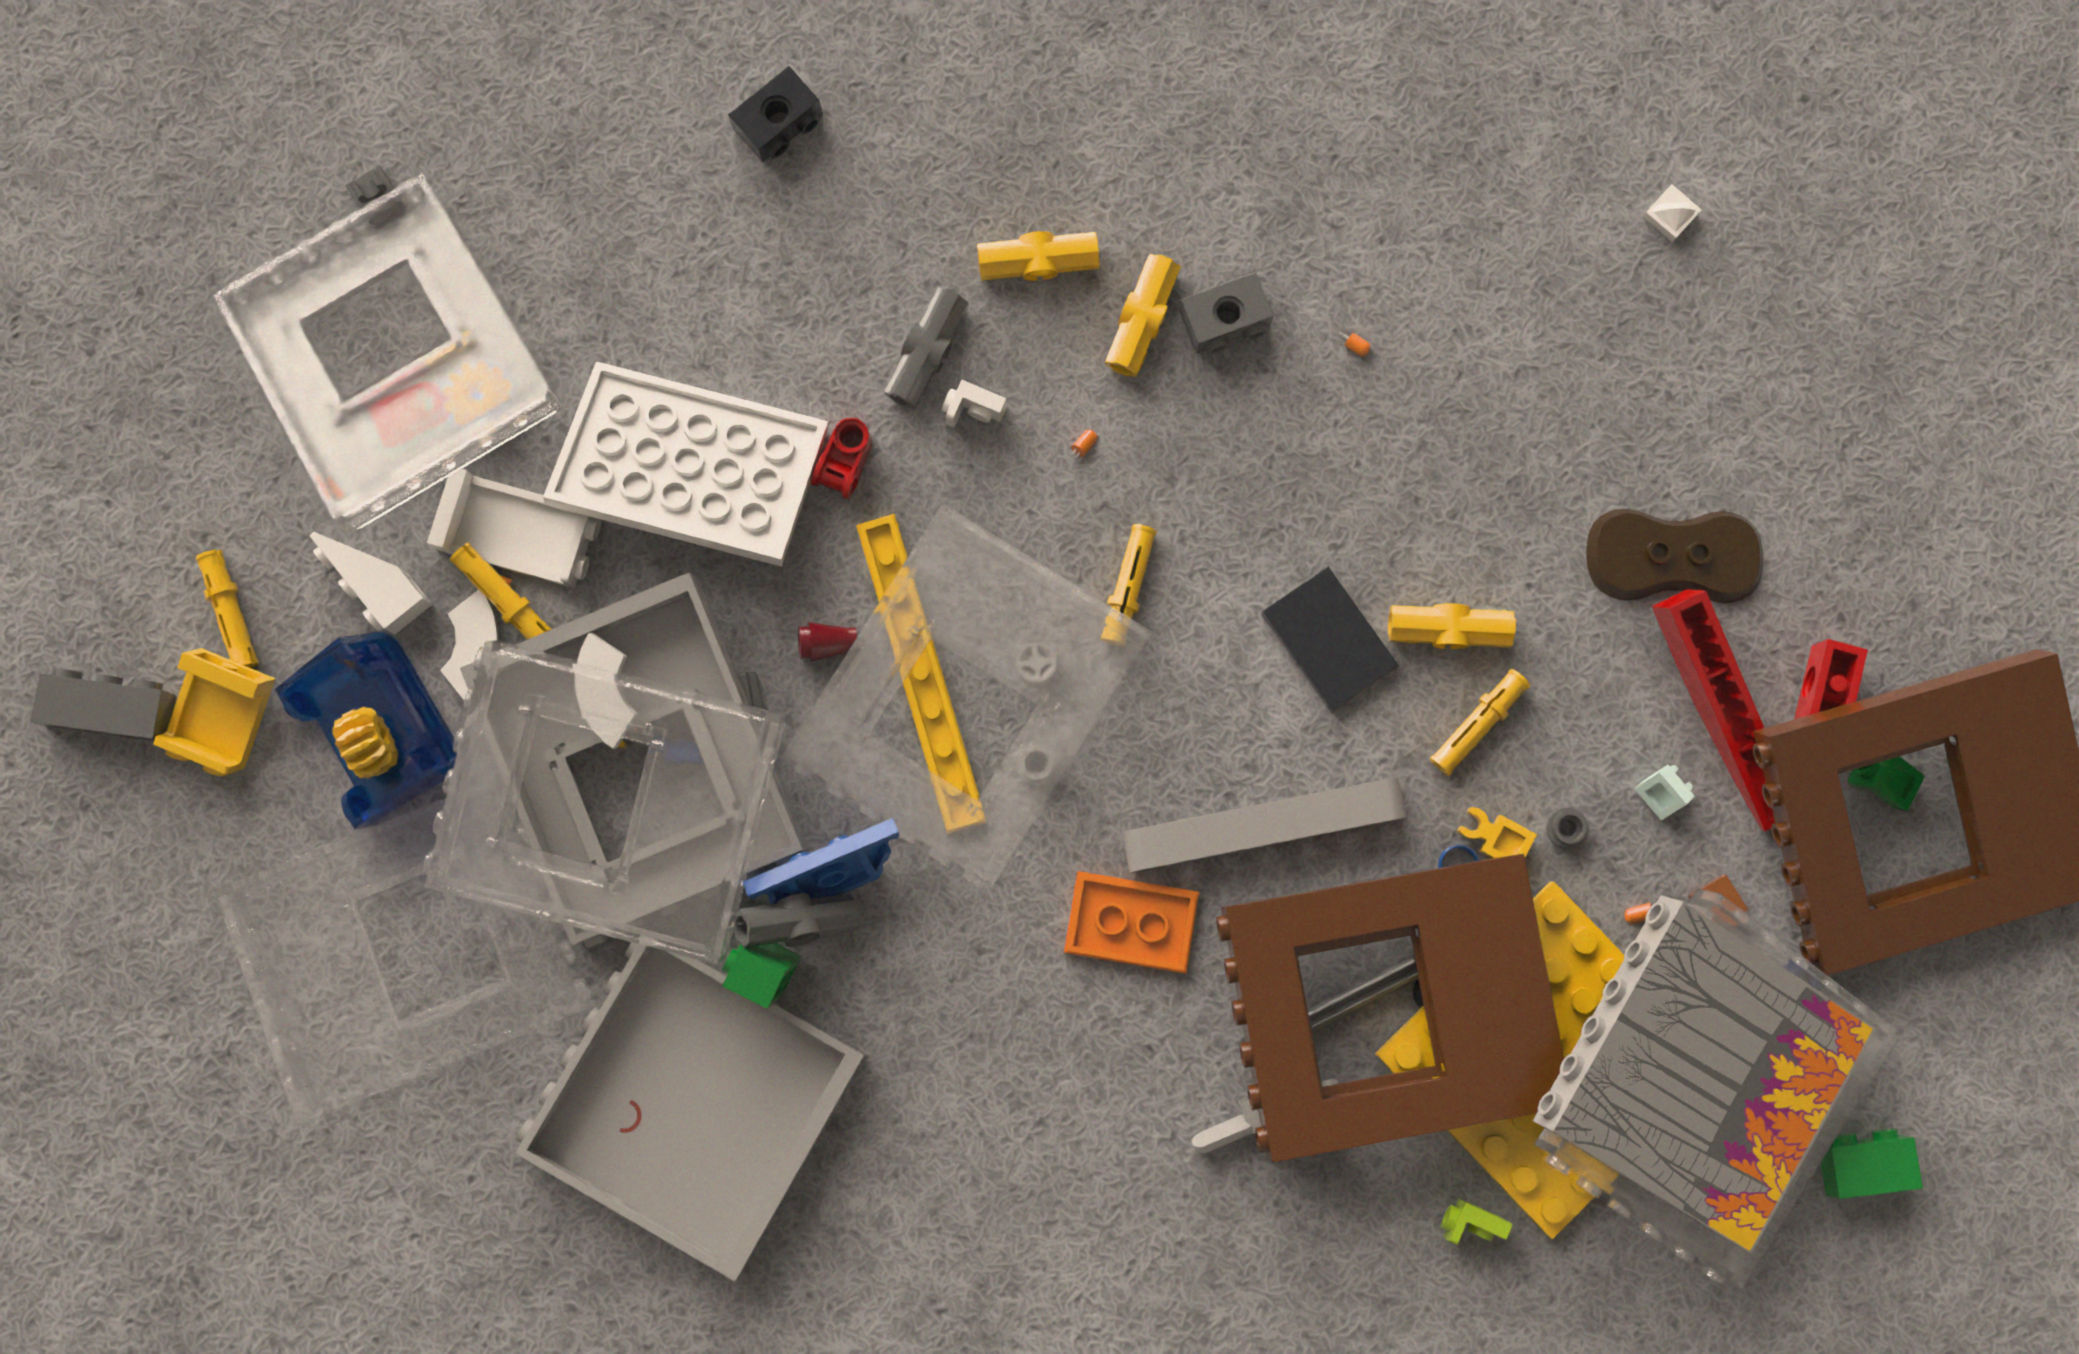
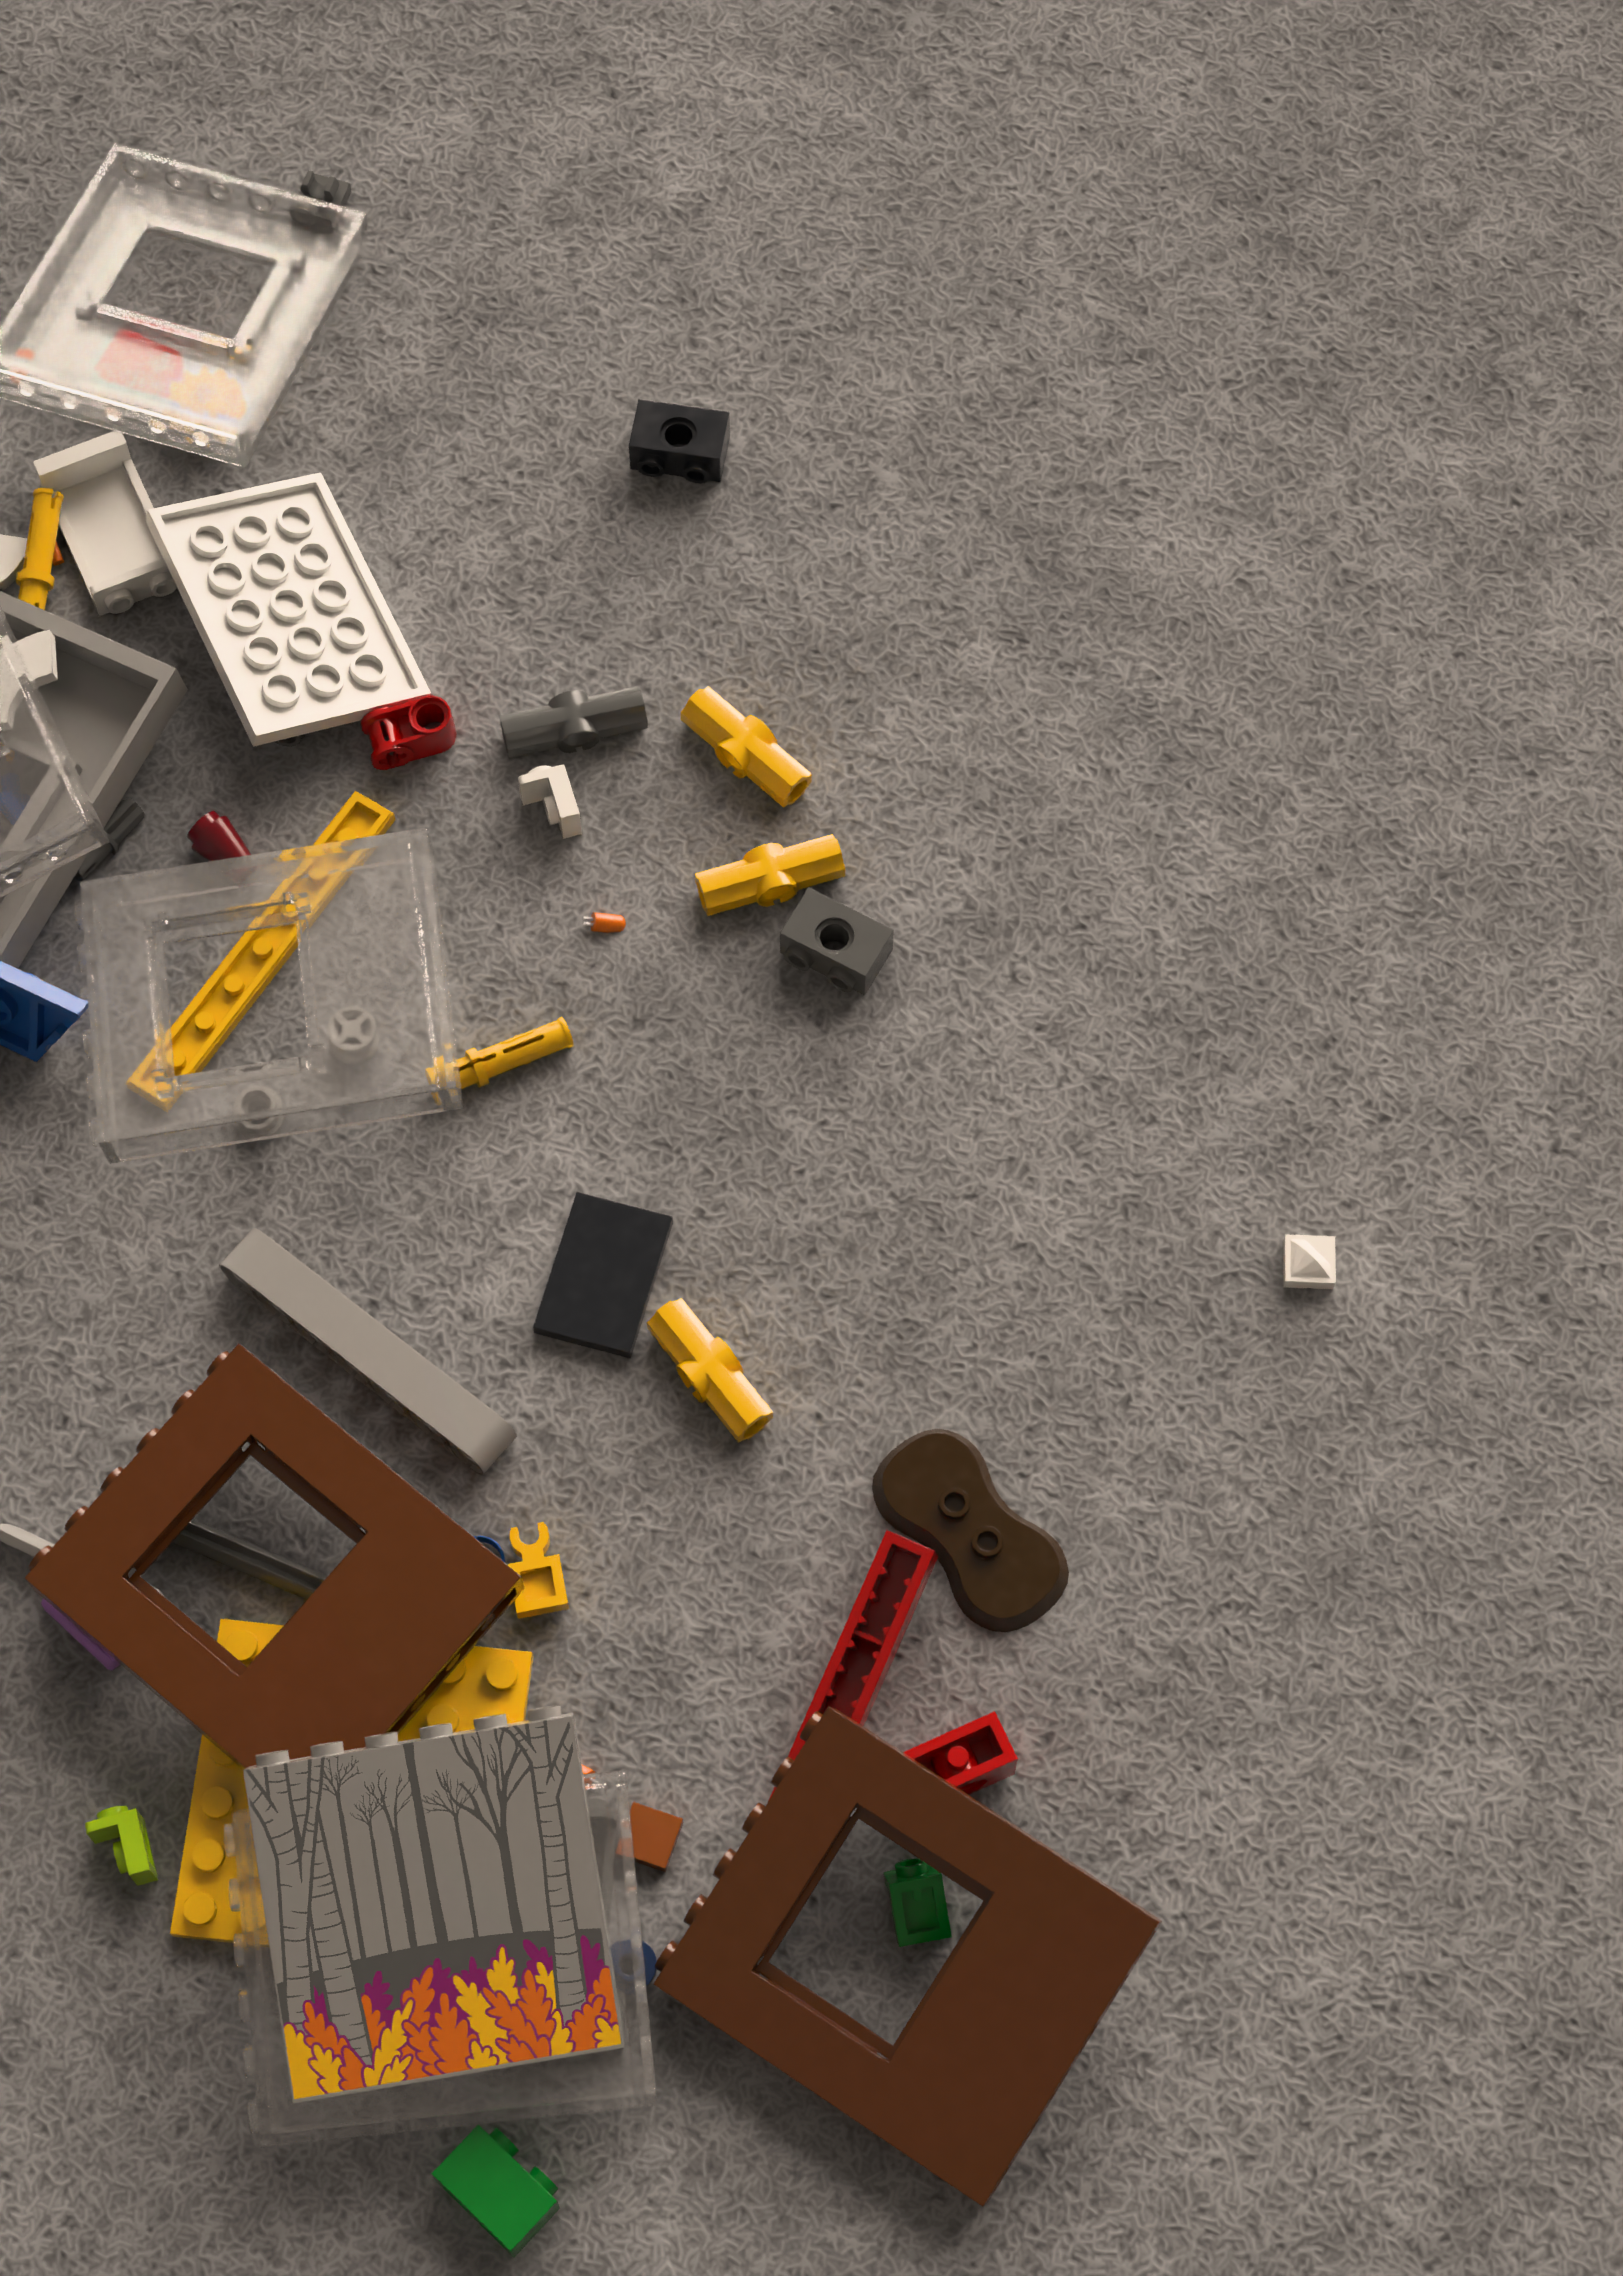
camera: 50 degrees right, 15 degrees down
(1131, 922) = (173, 1307): orange tile -> none
(1356, 344) = (915, 1081): orange piece -> none
(1482, 719) = (638, 1470): yellow pin -> none
(1579, 823) = (602, 1618): dark grey plate -> none
(1665, 791) = (715, 1693): light aqua tile -> none

